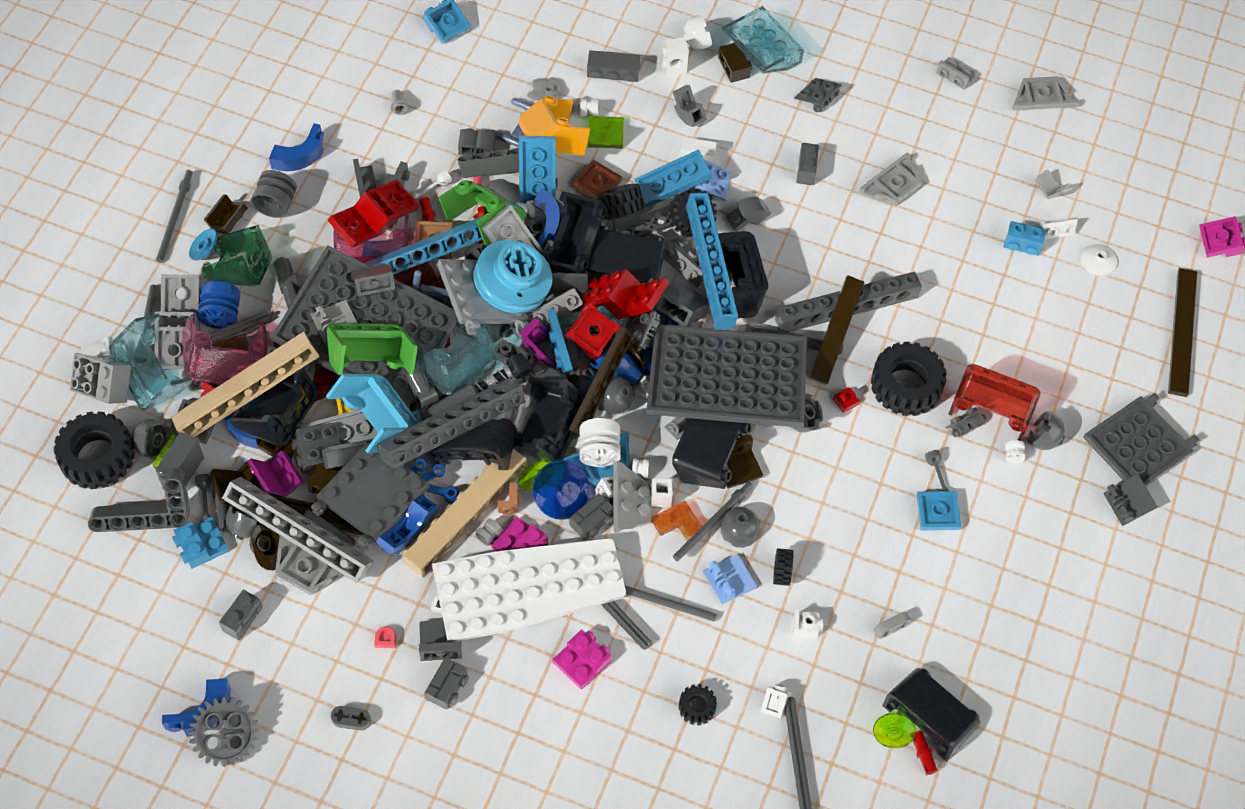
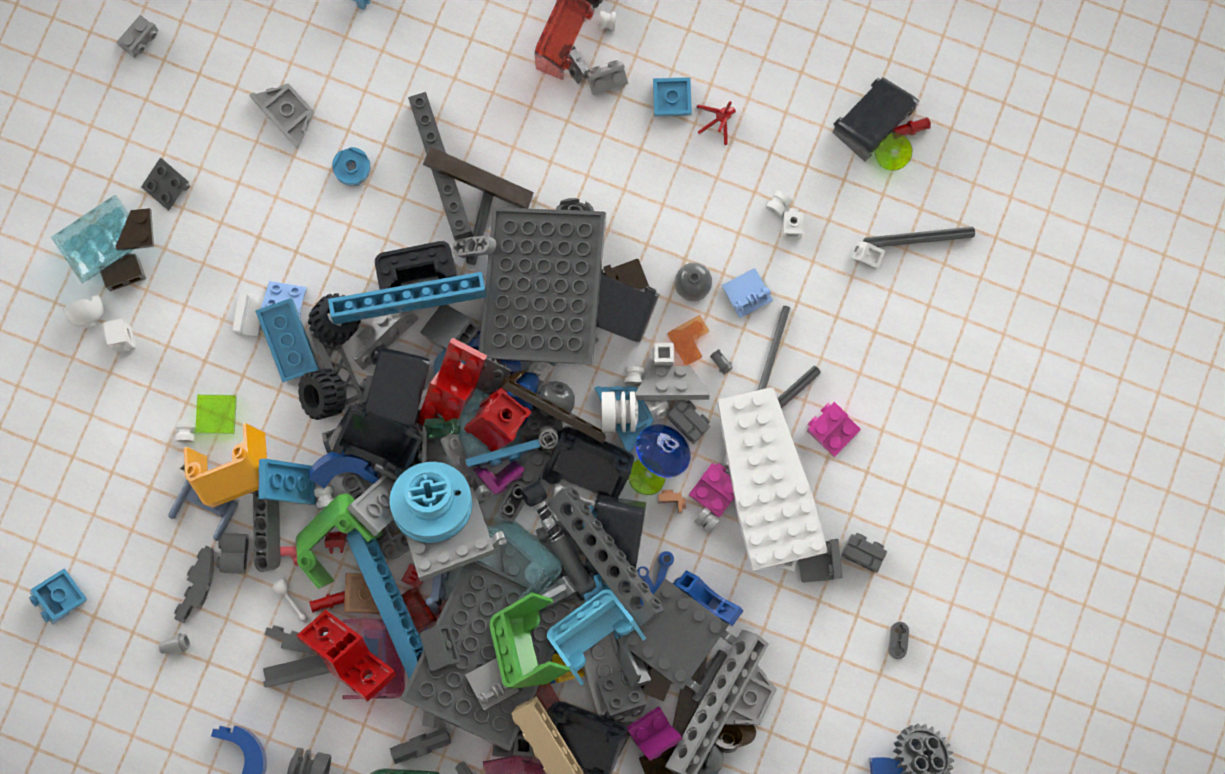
camera: 90 degrees left, 20 degrees up
(240, 614) = (802, 753): dark grey brick -> none
(385, 638) = (817, 614): coral tile -> none
(447, 119) = (201, 577): none -> dark grey slope
(461, 514) = (691, 549): tan brick -> none
(544, 87) = (154, 484): light grey plate -> none
(576, 378) = (546, 433): none -> light grey wheel
(585, 285) = (440, 428): none -> clear green plate
(596, 179) = (285, 422): copper plate -> none
(613, 66) = (127, 405): dark grey brick -> none
(654, 551) = (722, 363): none -> dark grey pin
(687, 108) = (189, 323): dark grey brick -> none
(706, 696) = (874, 313): black tyre -> none
(735, 498) = (661, 283): dark grey bar -> none
(748, 210) = (330, 263): dark grey brick -> none
(767, 324) = (479, 249): none -> light grey beam
(770, 63) = (137, 231): none -> dark brown wing
(783, 567) = (739, 241): black tyre -> none
(807, 164) = (264, 199): dark grey brick -> none
(828, 610) = (778, 203): none -> white wheel
(842, 241) = (355, 176): none -> dark azure plate
(846, 399) = (550, 175): red tile -> none
(892, 625) = (791, 146): light grey beam -> none
(902, 398) = (526, 90): black tyre -> none
(923, 557) = (722, 116): none -> red plant
(934, 458) = (616, 96): dark grey hinge -> none
(952, 449) = (607, 77): none -> light grey bracket

